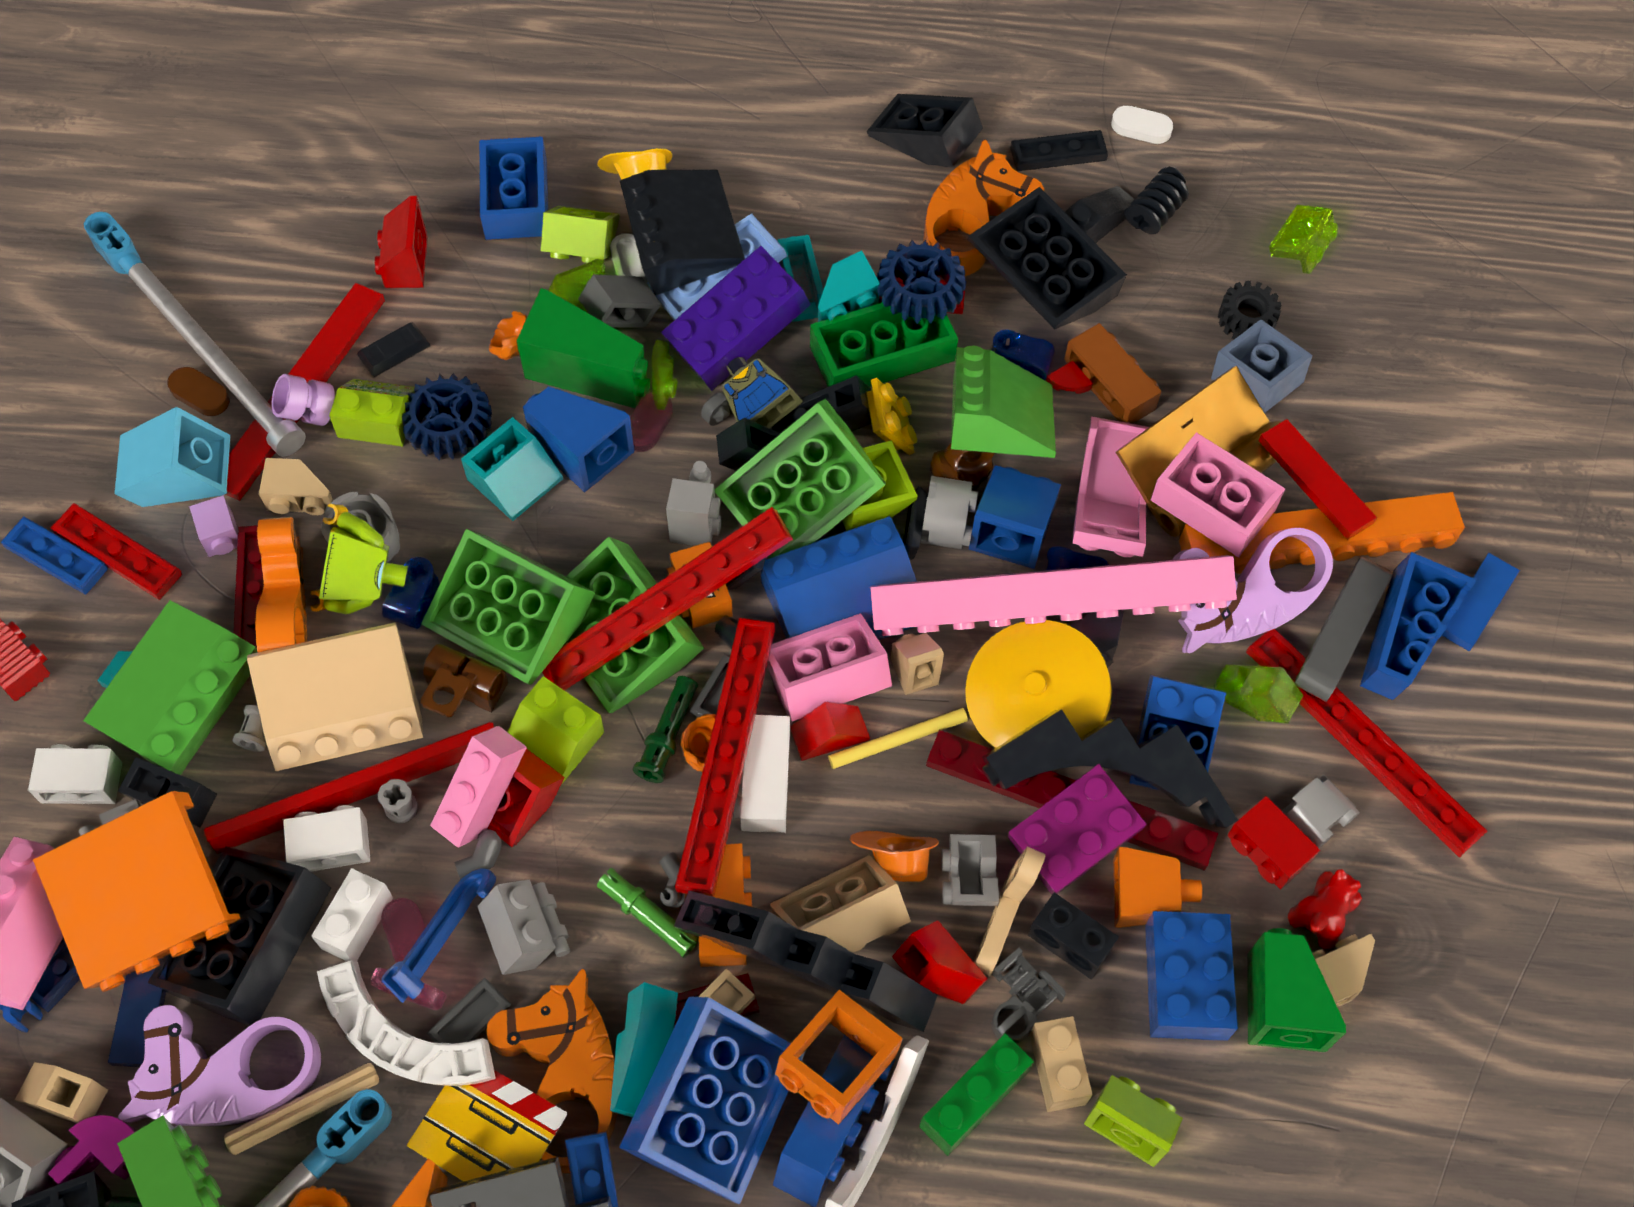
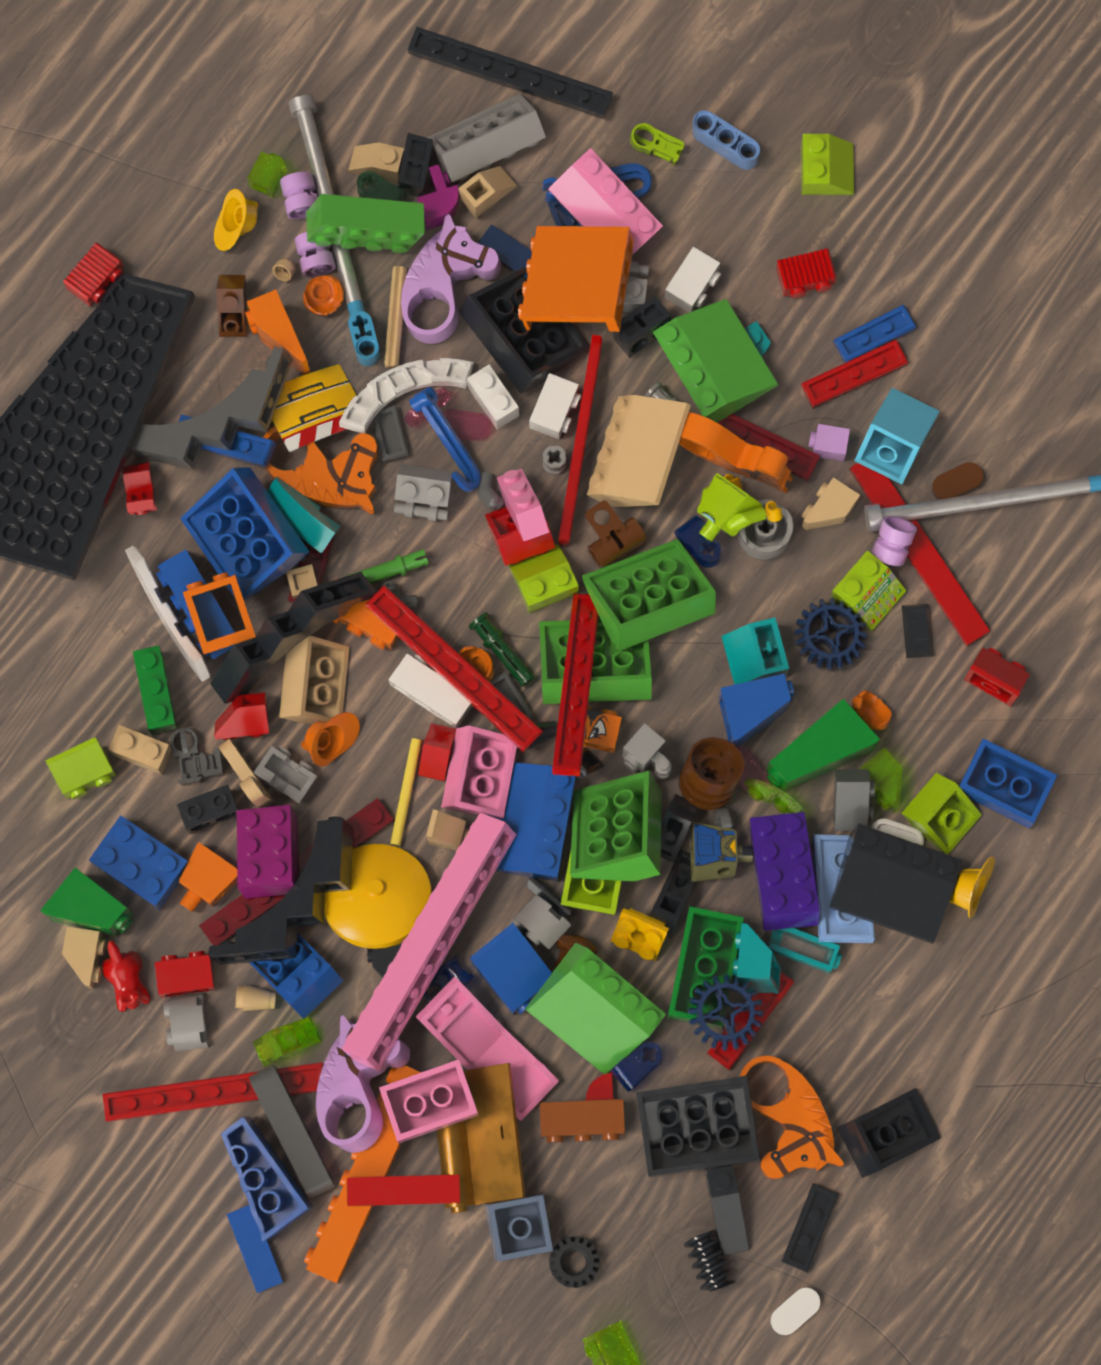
camera: 125 degrees right, 15 degrees up
(675, 432) = (711, 773): none -> reddish brown wheel
(1239, 756) = (254, 998): none -> tan cone

